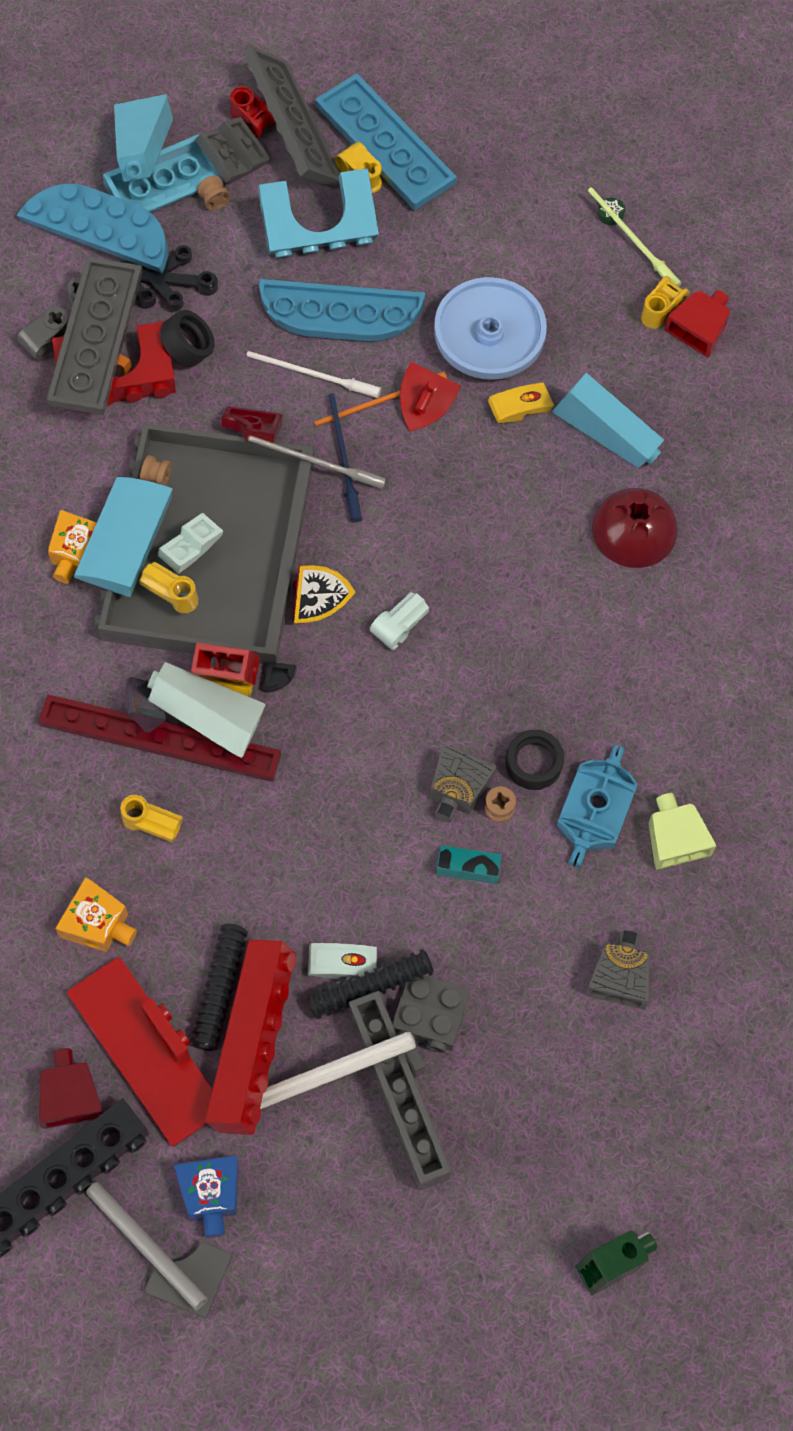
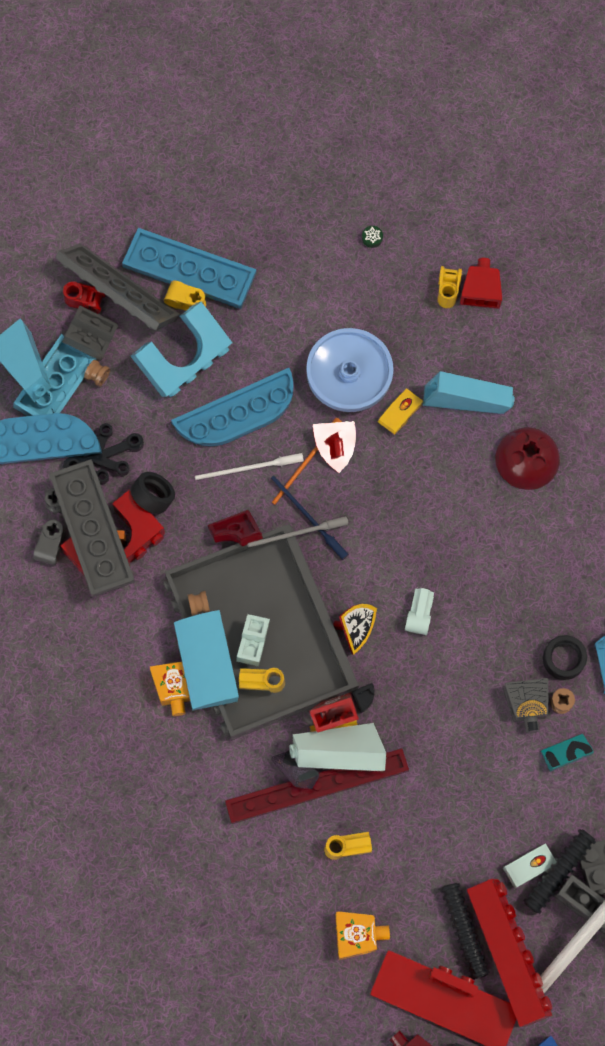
camera: 30 degrees left, 5 degrees up
(658, 265) = (427, 259): yellowish green piece -> none

